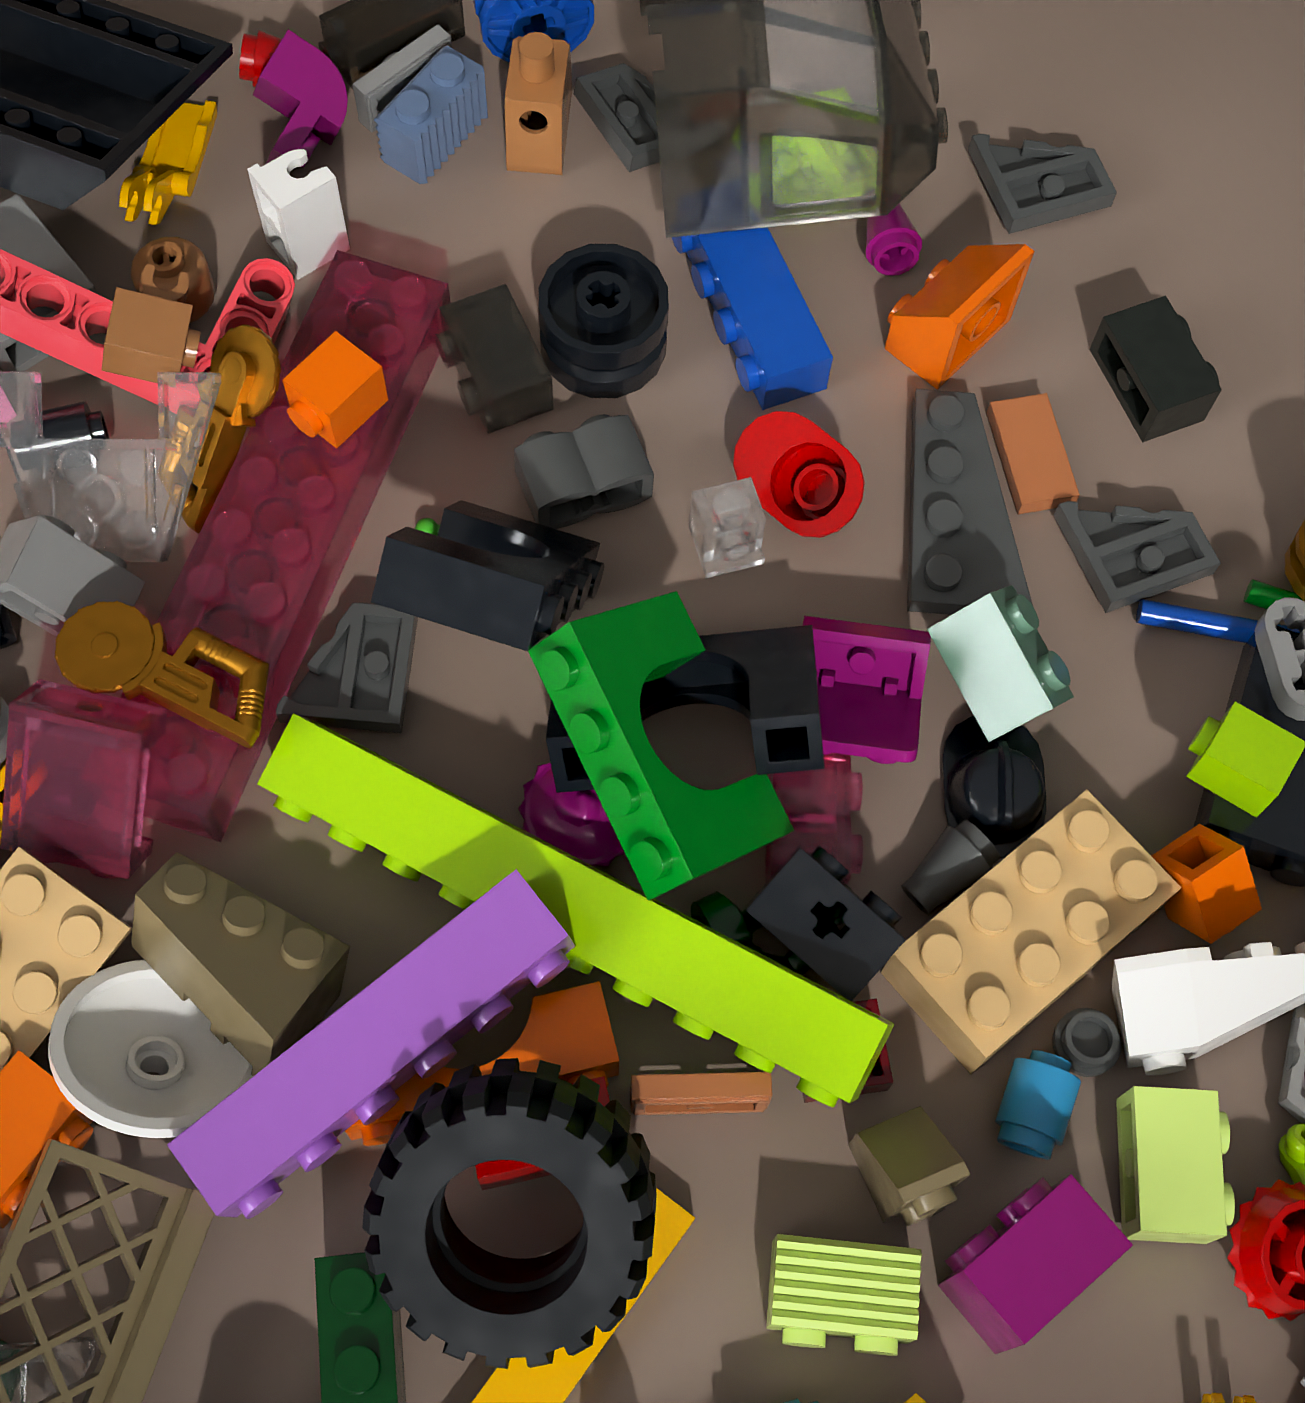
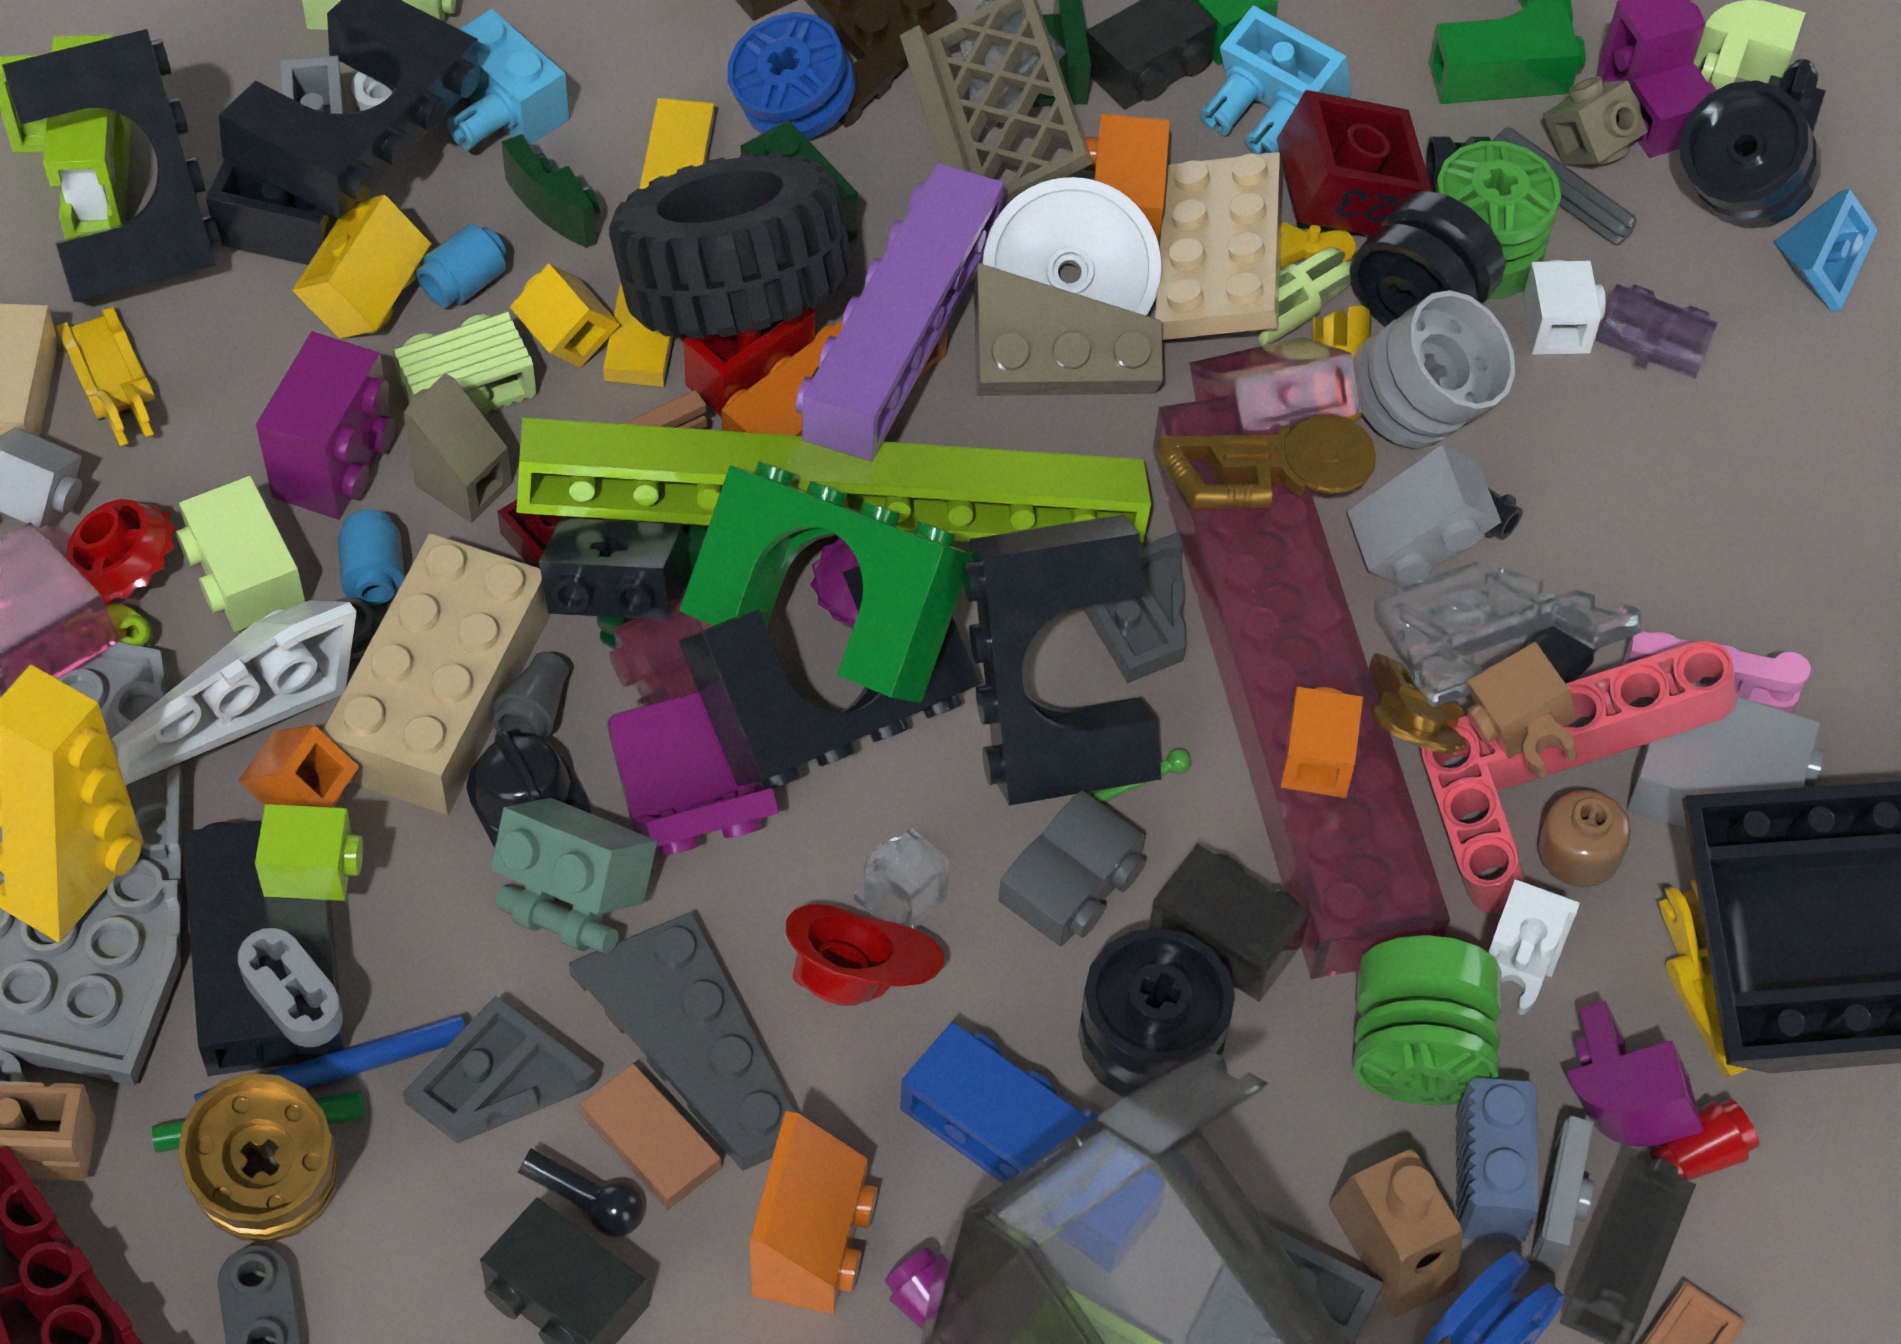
camera: 150 degrees right, 10 degrees down
(413, 198) = (1426, 1019): none -> bright green wheel
(707, 1297) = (564, 315): none -> yellow brick
(1084, 422) = (613, 1207): none -> black bar

